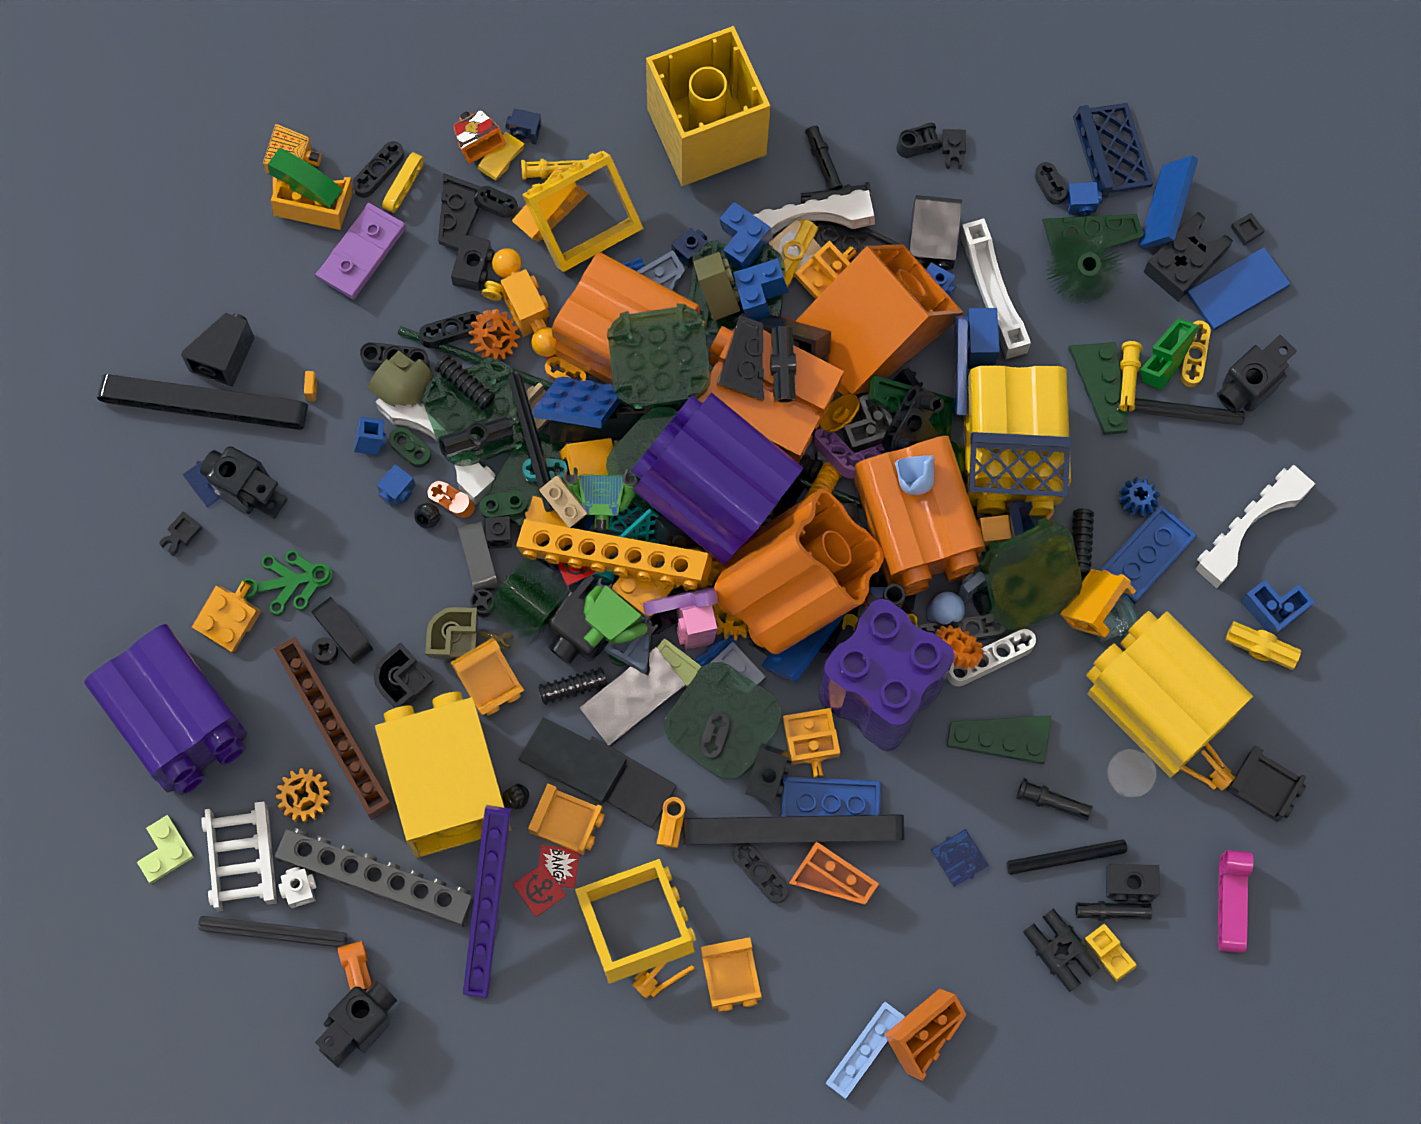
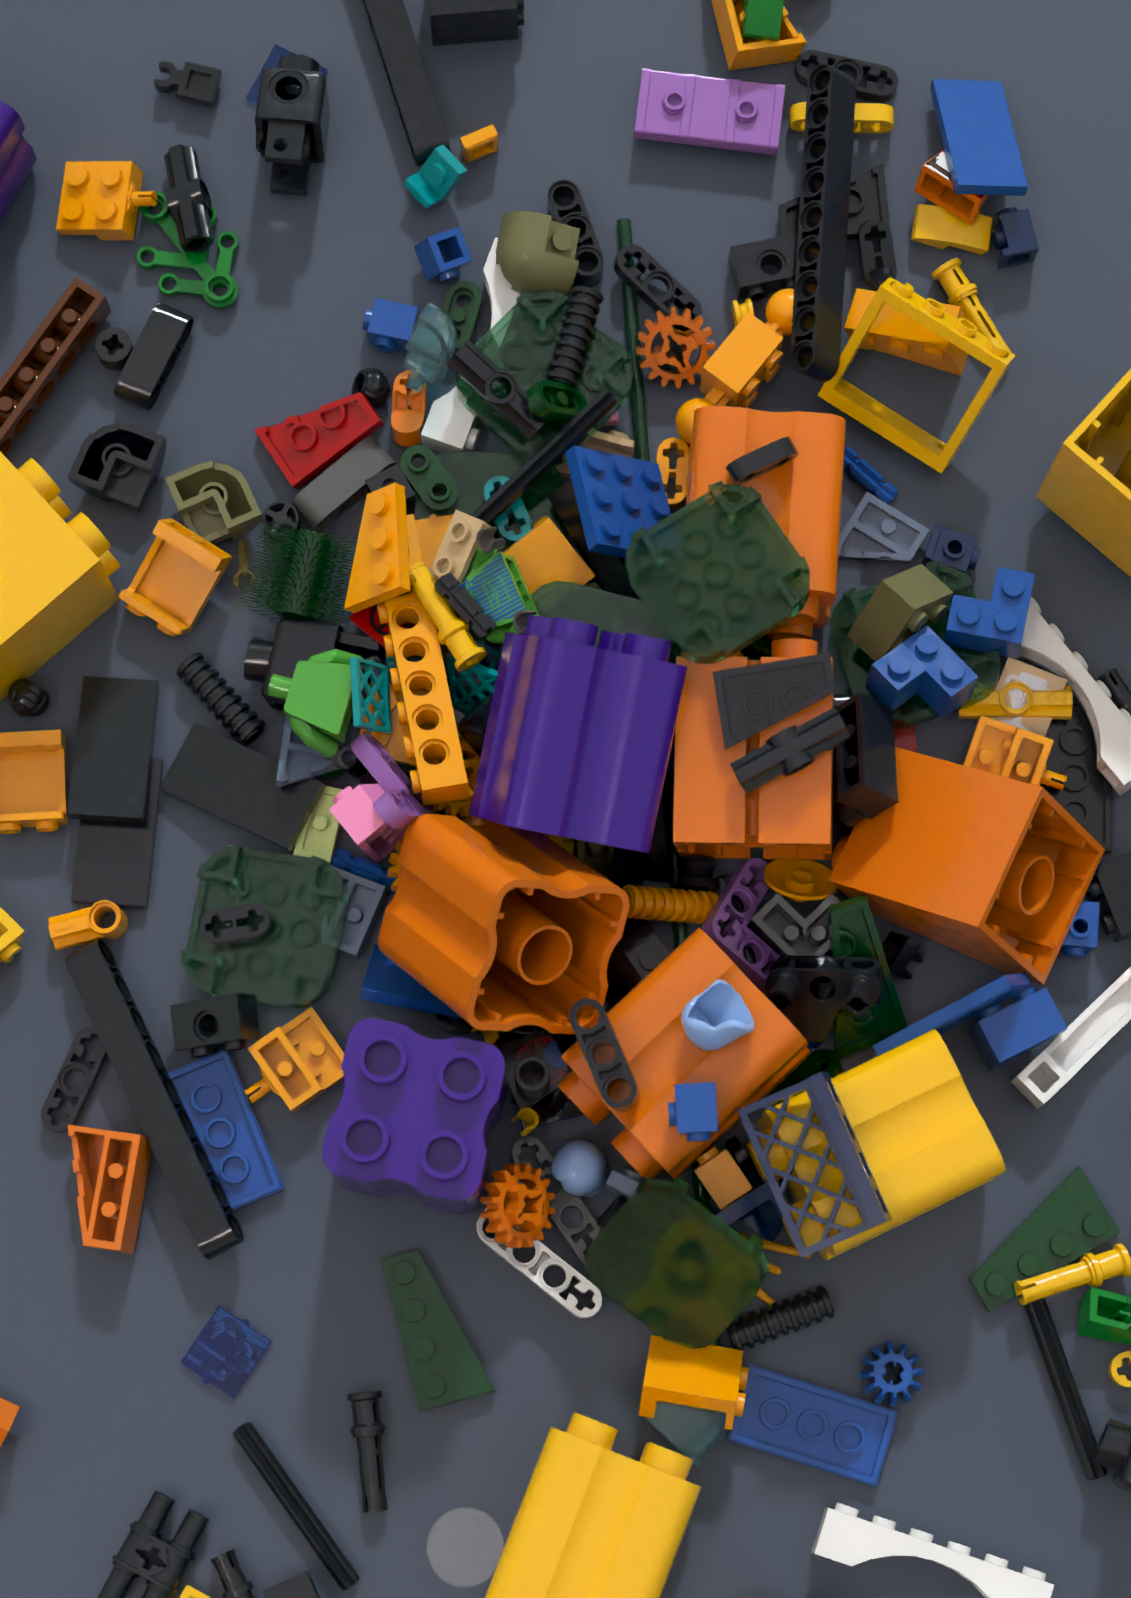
camera: 65 degrees right, 5 degrees up
(256, 565) = (188, 199): none -> black piece
(319, 419) = (436, 177): none -> teal bracket
(425, 467) = (430, 347): none -> clear light blue brick
(443, 557) = (317, 439): none -> red wing
(458, 113) = (978, 137): none -> blue tile
(477, 217) = (823, 223): none -> black beam
(500, 407) = (555, 400): none -> dark green plate
(541, 543) = (381, 550): none -> light orange wing
(600, 509) = (465, 605): none -> black axle
(605, 303) = (761, 460): none -> black beam
(610, 524) = (452, 630): none -> yellow pin
(625, 588) = (360, 706): none -> teal window
(896, 551) = (590, 1041): none -> black beam
(962, 509) = (695, 1111): none -> blue brick

